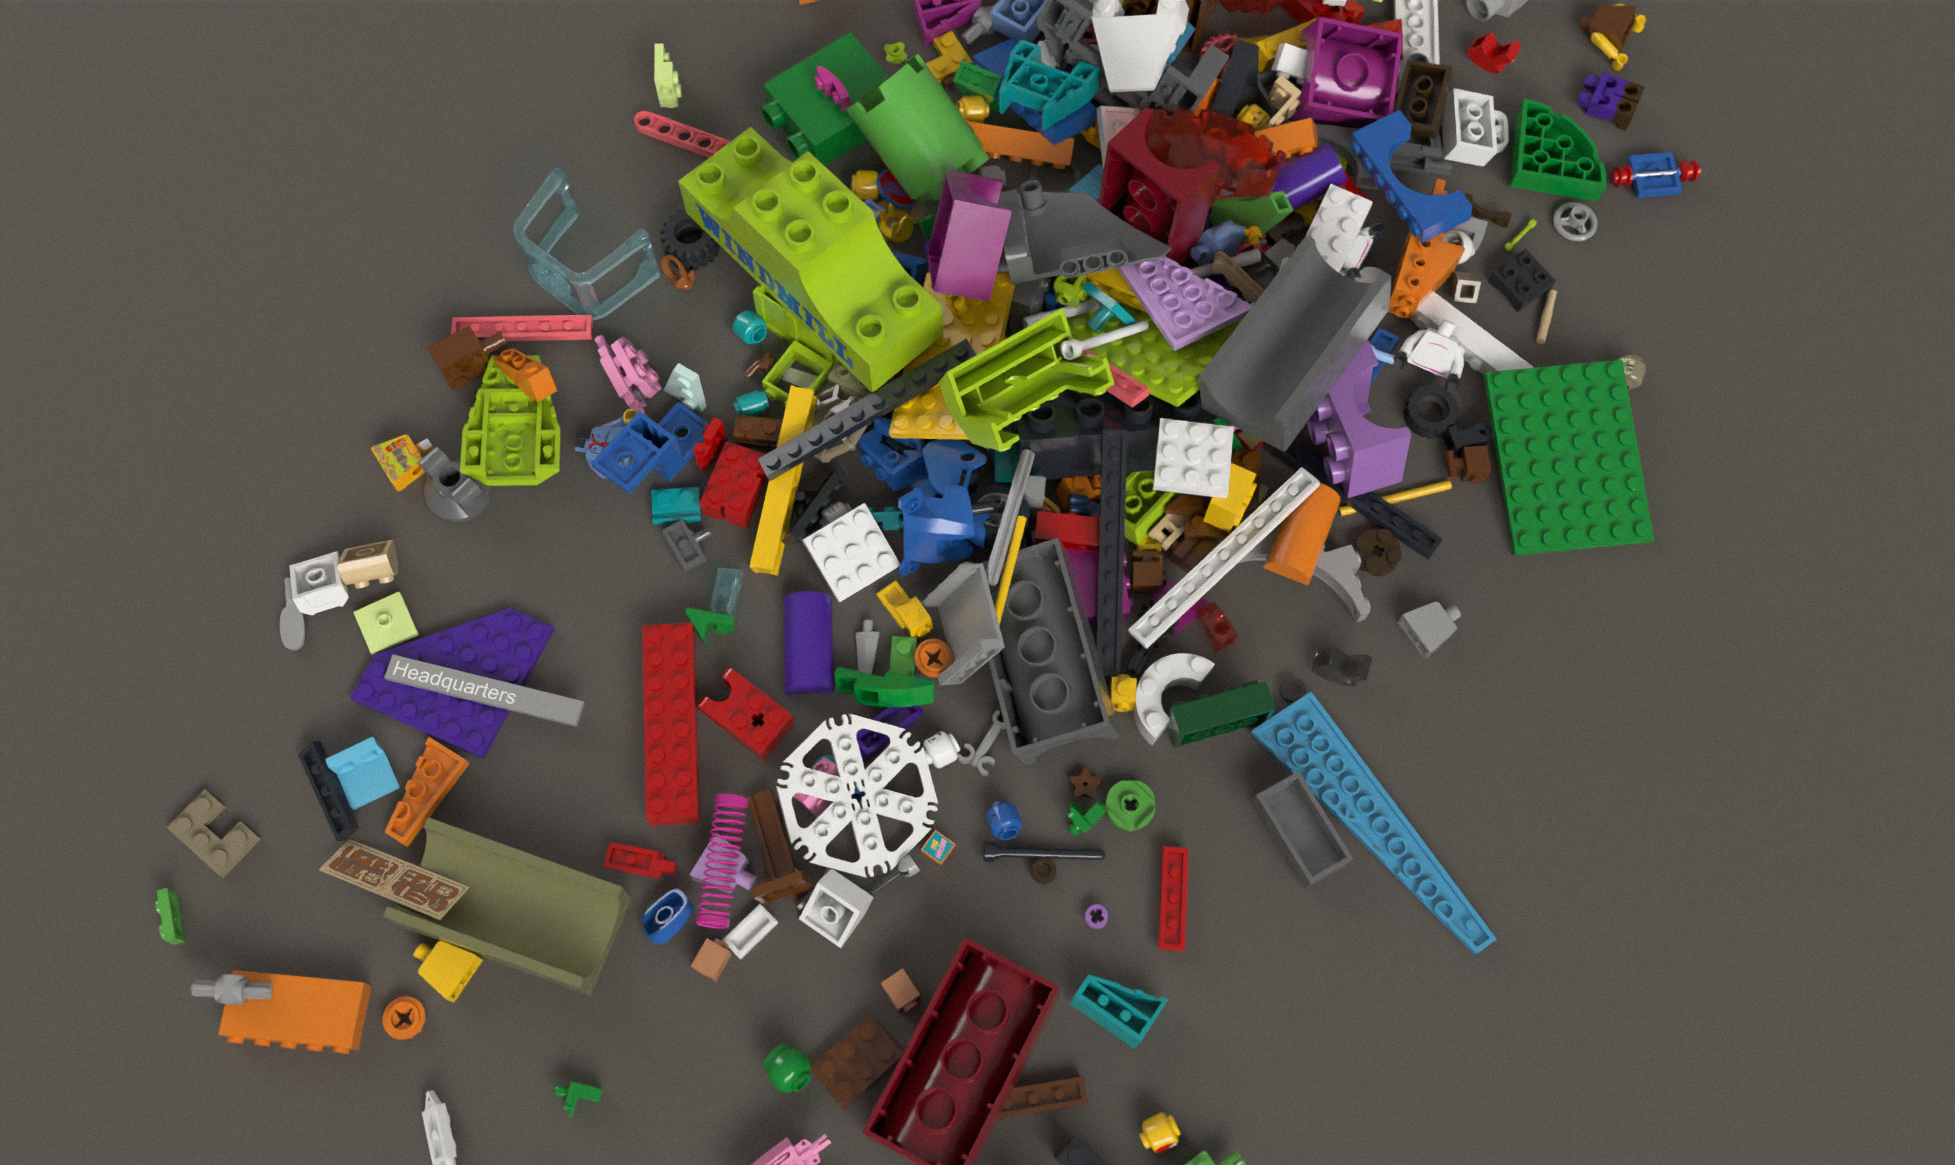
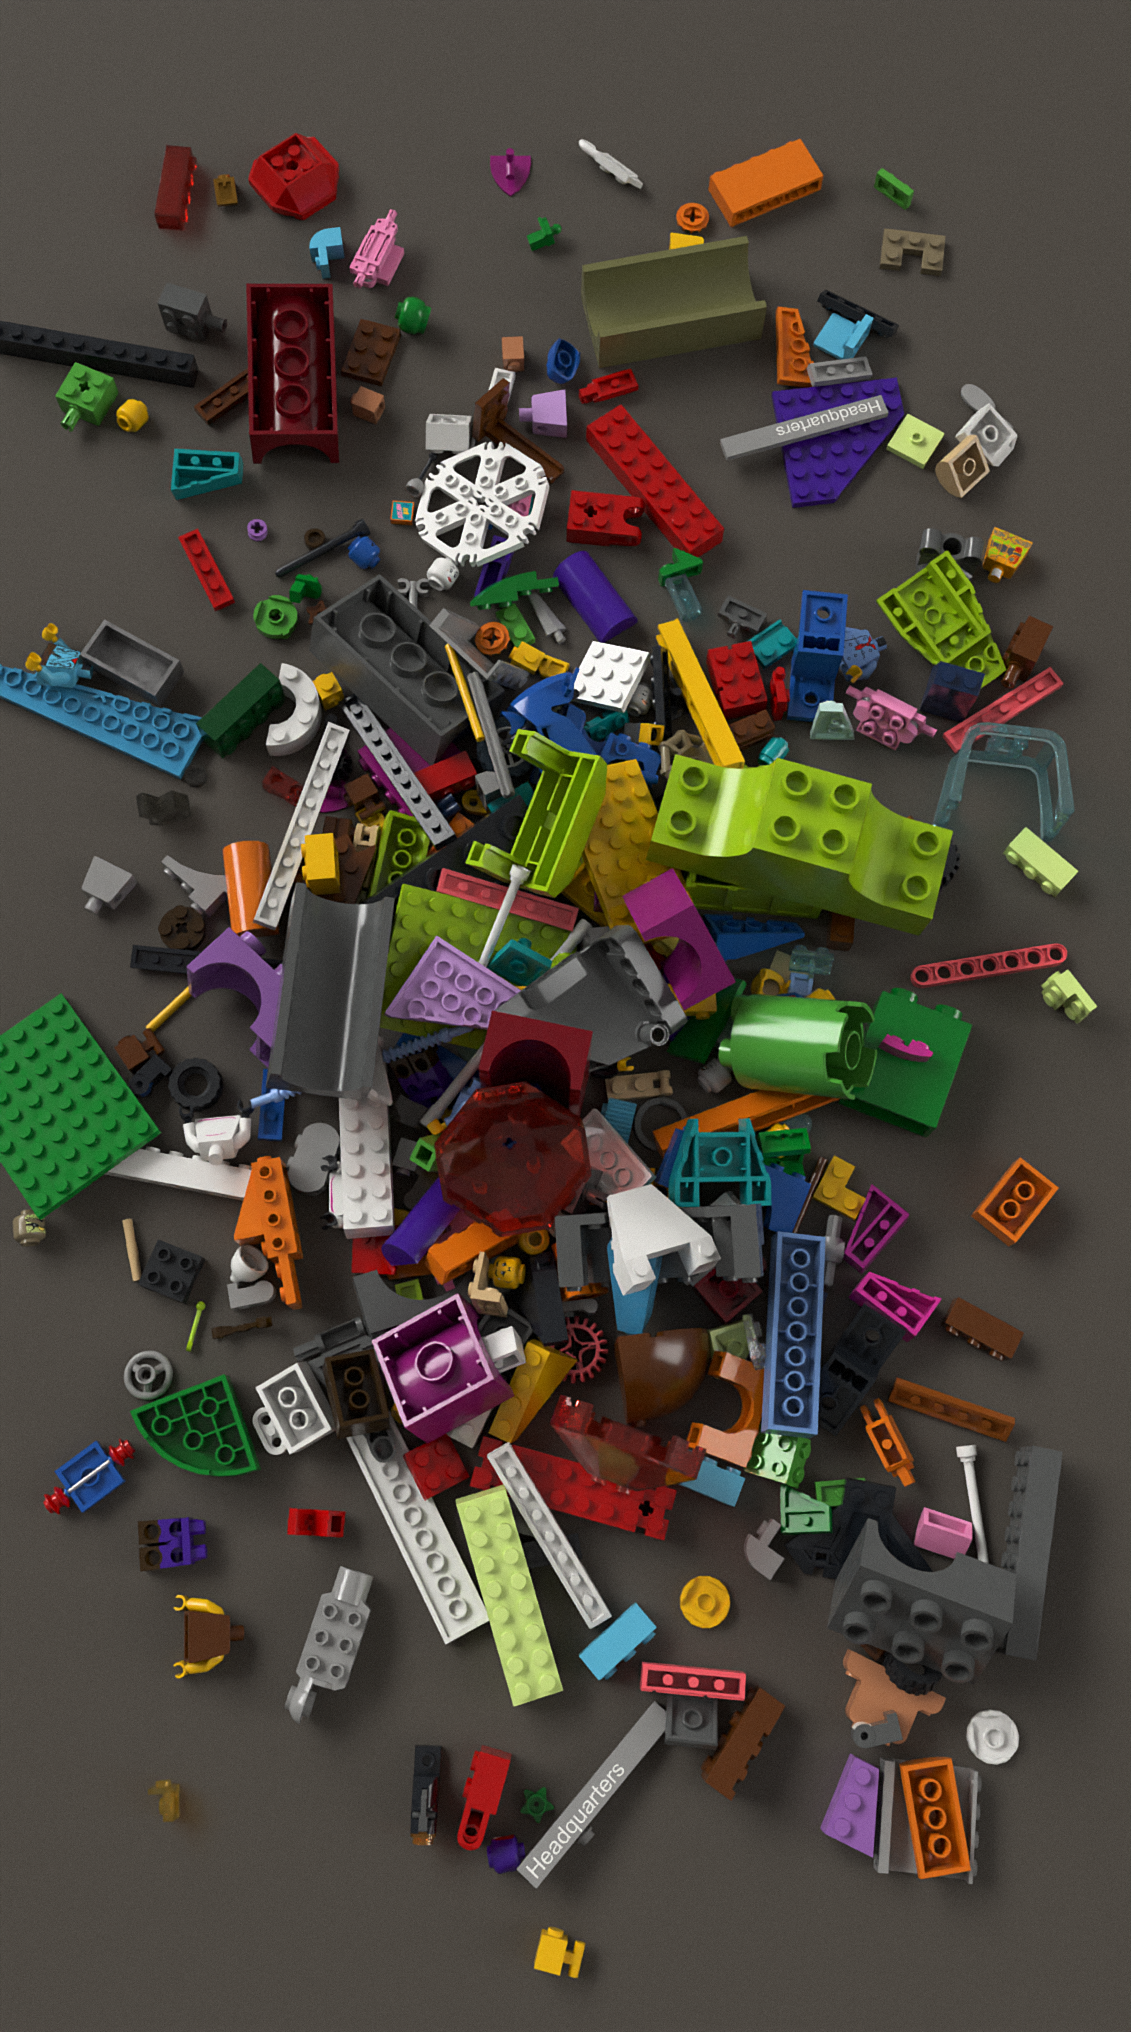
camera: 150 degrees right, 5 degrees up
(232, 989) = (811, 159): light grey axle -> none
(394, 879) = (763, 278): sticker -> none
(401, 734) = (839, 371): none -> light grey plate
(528, 374) = (960, 655): orange slope -> none
(560, 344) = (951, 691): none -> dark blue slope
(599, 191) = (1040, 862): none -> yellowish green brick
(729, 801) = (529, 367): dark pink piece -> none
(856, 480) = (642, 732): none -> yellow leg
(864, 411) = (658, 772): black plate -> none
(895, 58) = (890, 1170): lime plate -> none
(1193, 458) = (367, 859): white plate -> none
(1236, 276) = (427, 1082): tan plate -> none
(1376, 869) = (58, 663): none -> torso
(1423, 213) = (287, 1240): blue arch -> none
(1465, 287) = (221, 1232): dark tan brick -> none

